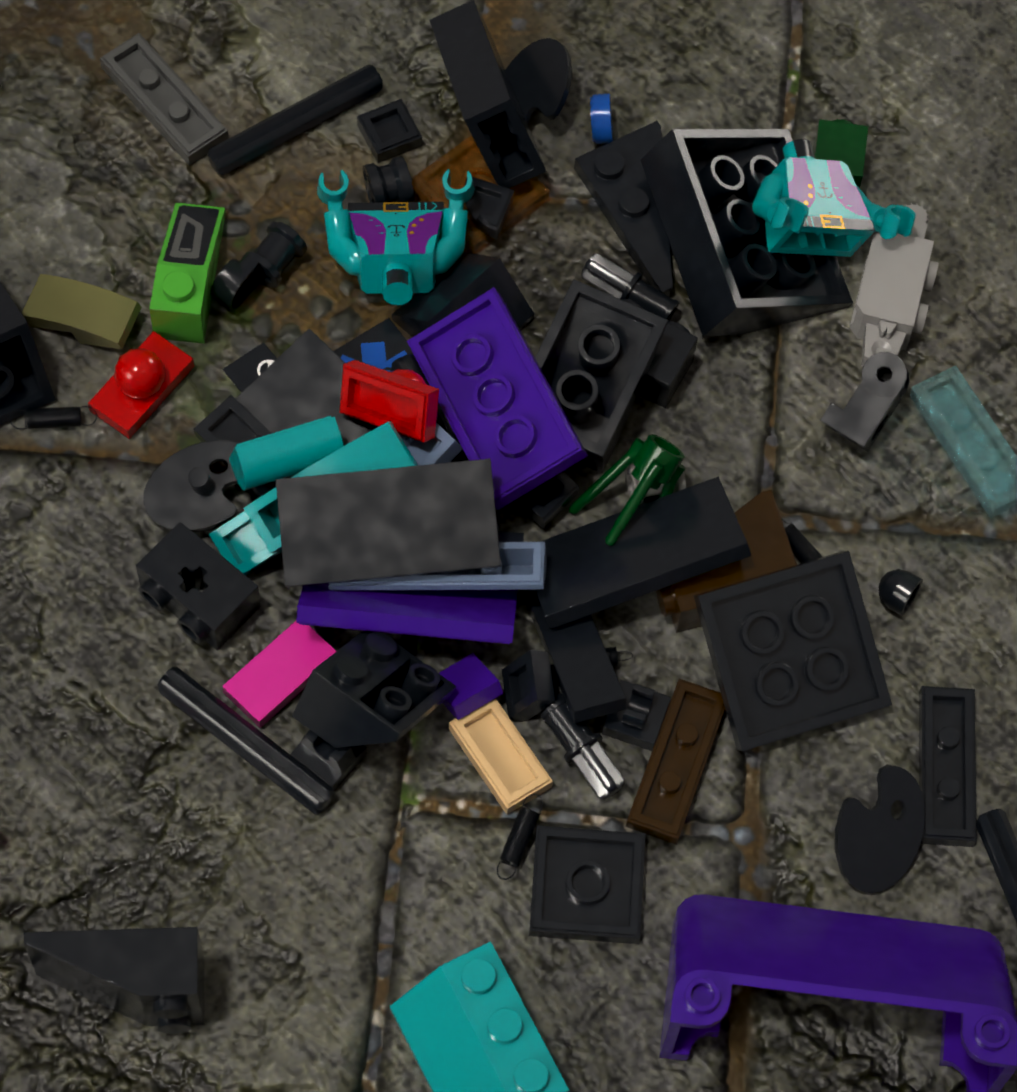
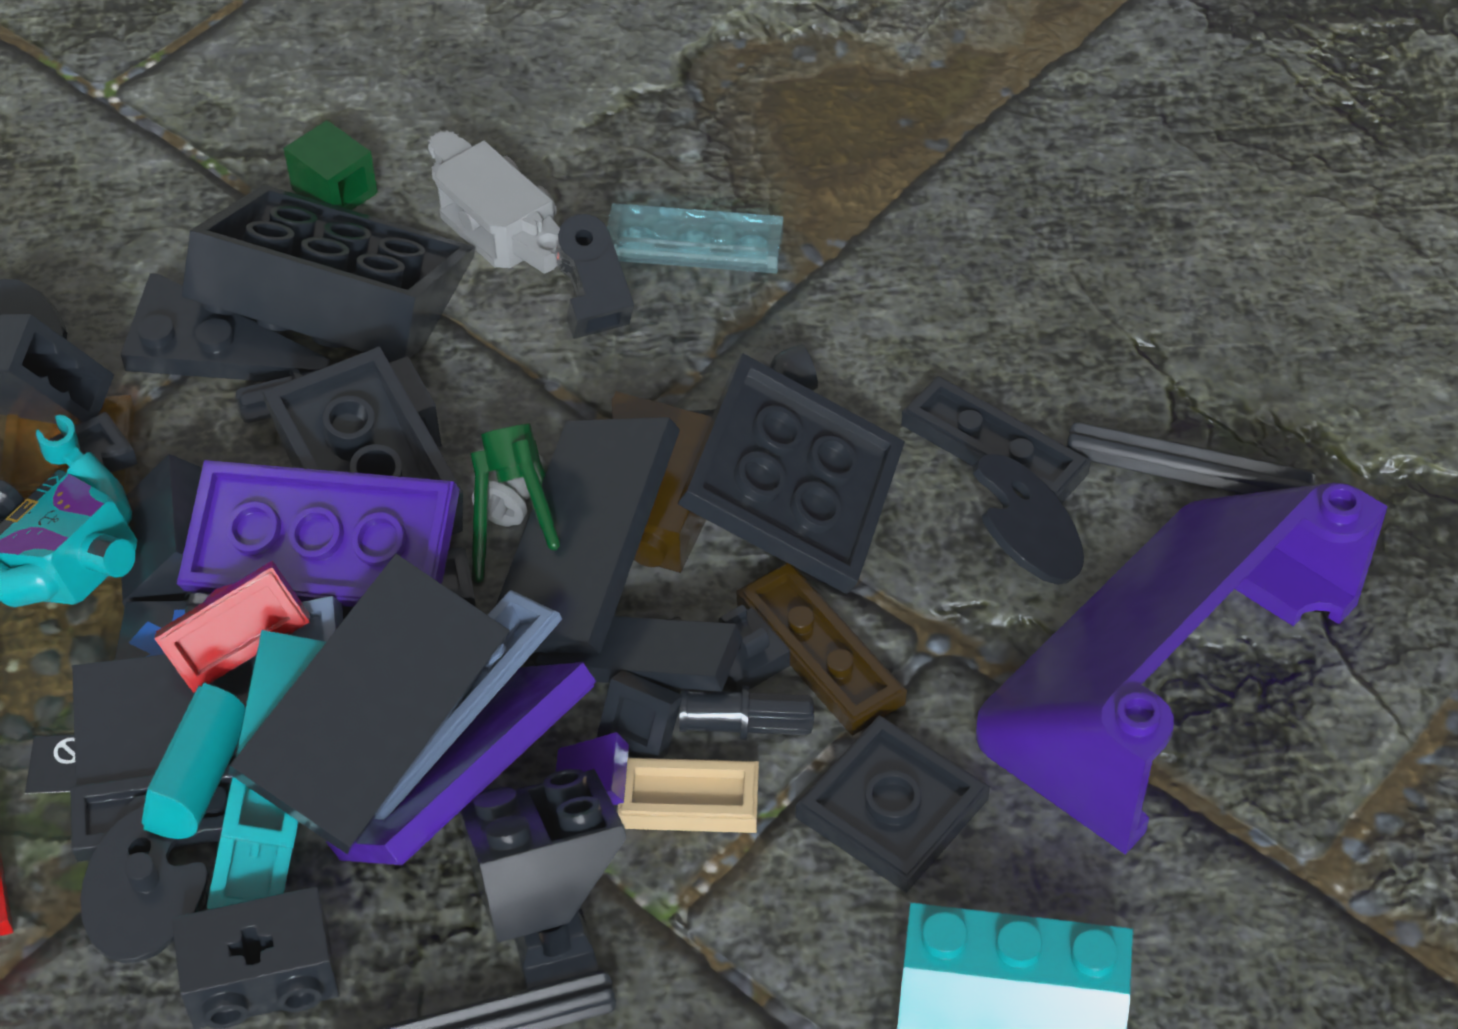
camera: 50 degrees left, 15 degrees down
(277, 673) = (421, 945): dark pink tile -> none
(519, 836) = (795, 829): black piece -> none
(601, 118) = (103, 309): blue tile -> none
(819, 208) = (372, 194): teal torso -> none

